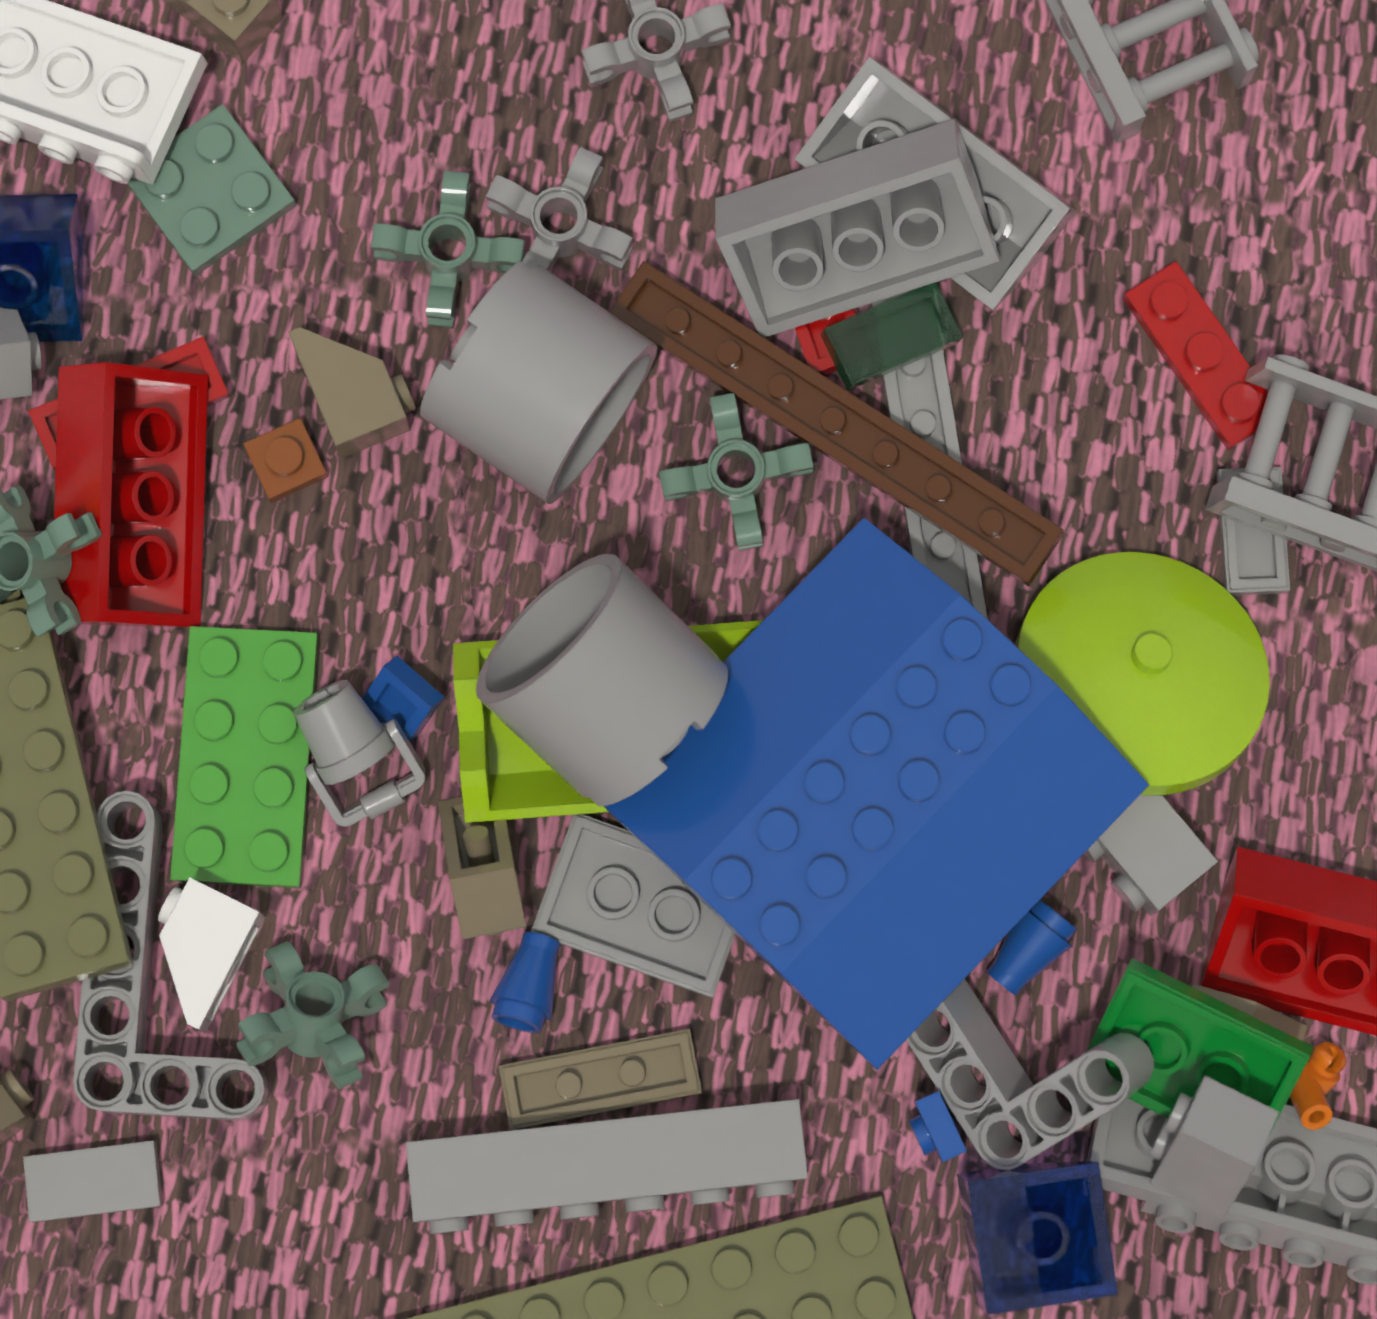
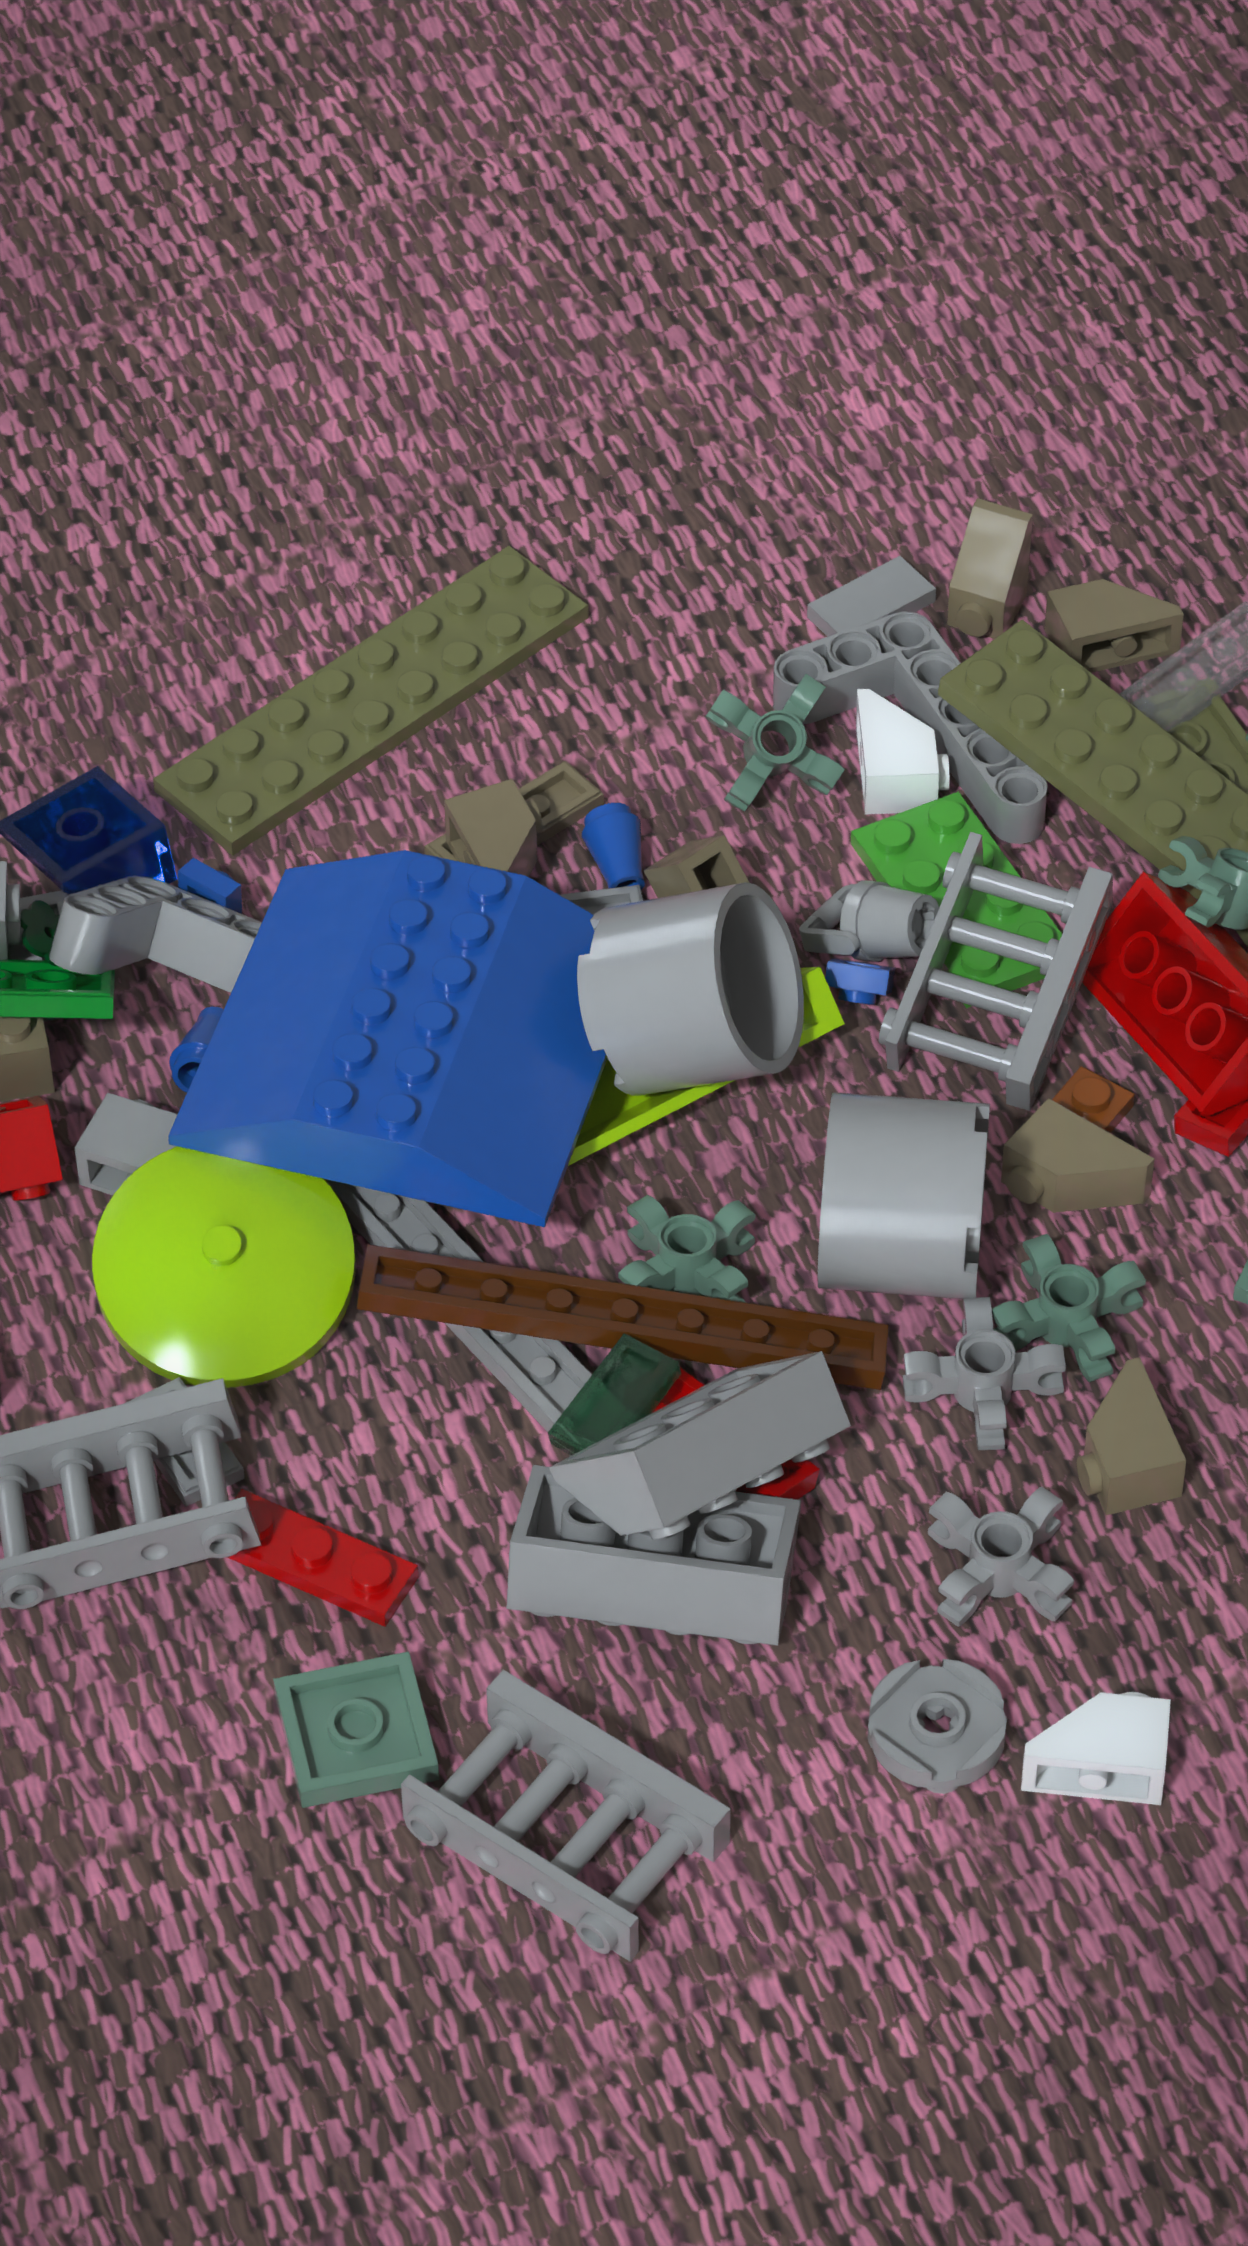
camera: 155 degrees right, 30 degrees down
(277, 550) = (1040, 1013): none -> light grey fence
(487, 88) = (1131, 1447): none -> dark tan slope
(606, 1162) = (518, 738): light grey brick -> none
(648, 1024) = (494, 828): none -> dark tan slope
(1133, 1124) = (39, 929): none -> dark green plant
(1253, 167) = (355, 1729): none -> sand green plate

